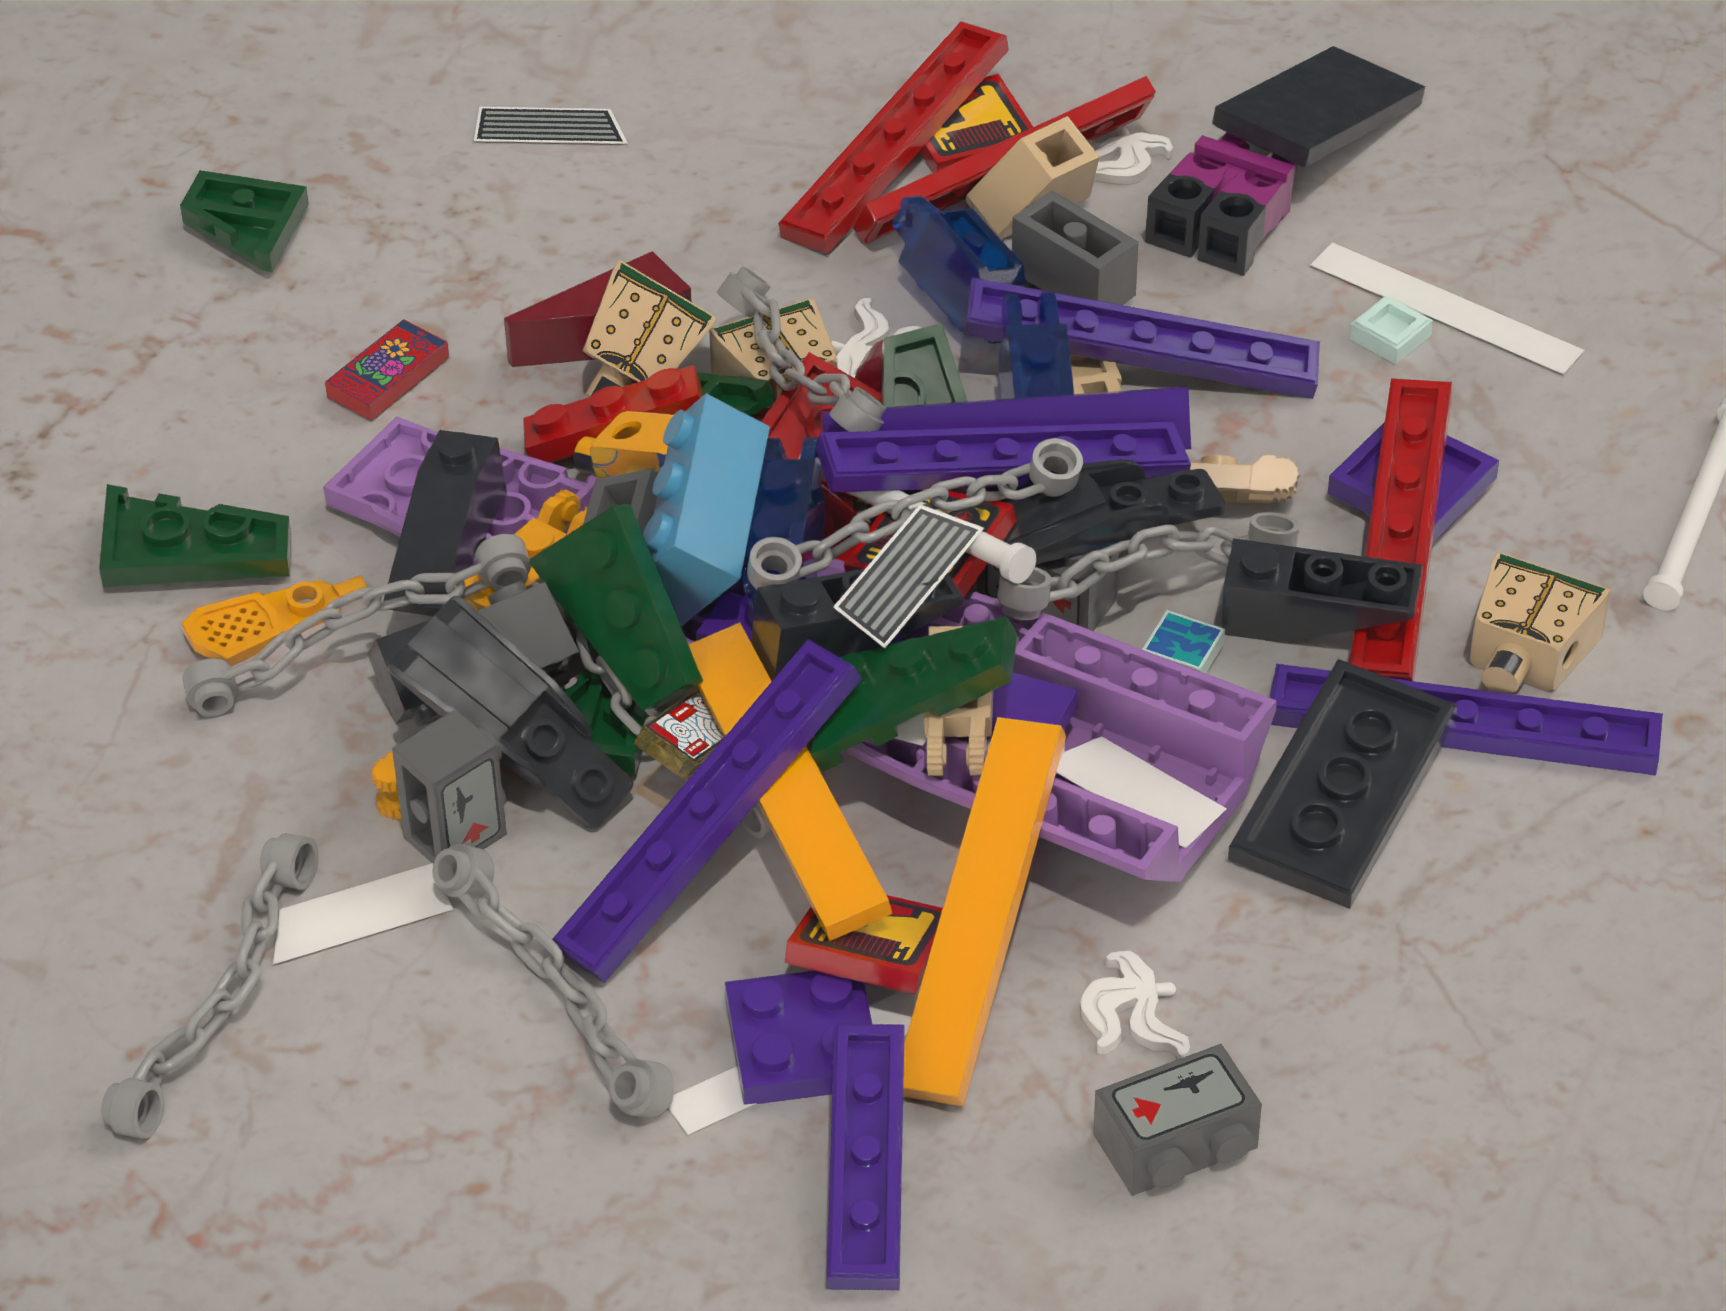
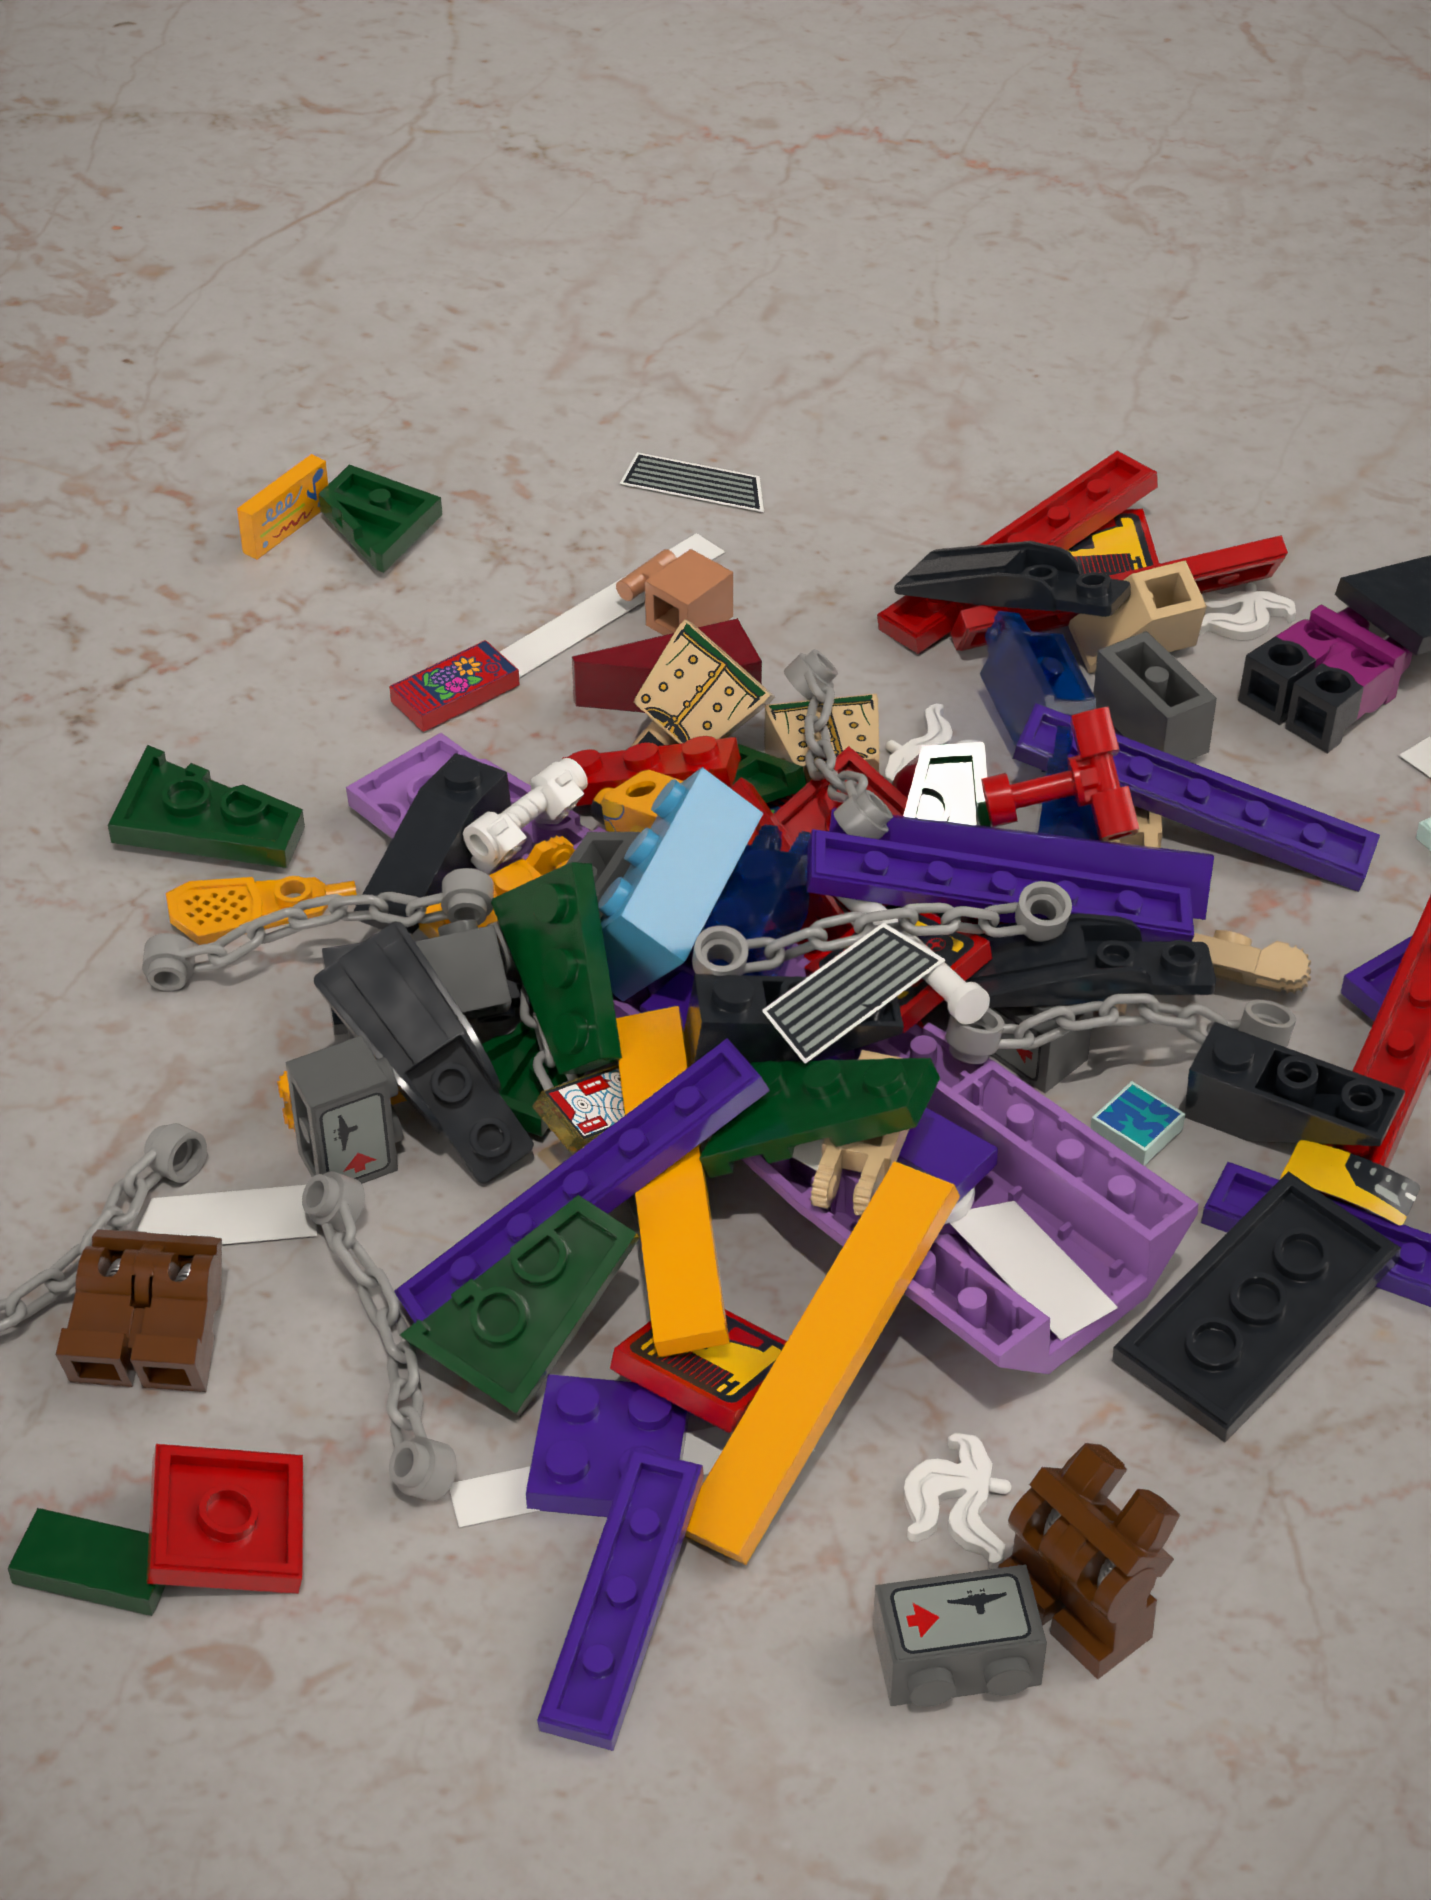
camera: 15 degrees right, 0 degrees up
(147, 225) = (282, 507): none -> light orange tile
(321, 999) = (145, 1310): none -> reddish brown hips
(361, 1239) = (86, 1562): none -> dark green tile
(473, 1173) = (226, 1519): none -> red tile
(509, 499) = (551, 798): none -> white piece
(510, 259) = (586, 617): none -> white sticker
(581, 237) = (680, 590): none -> nougat brick
(689, 925) = (528, 1306): none -> dark green wing
(905, 162) = (1014, 577): none -> black piece
(1053, 337) = (1090, 778): none -> red bar
(1277, 1023) = (1090, 1558): none -> reddish brown hips
(1395, 655) = (1354, 1180): none -> yellow sticker

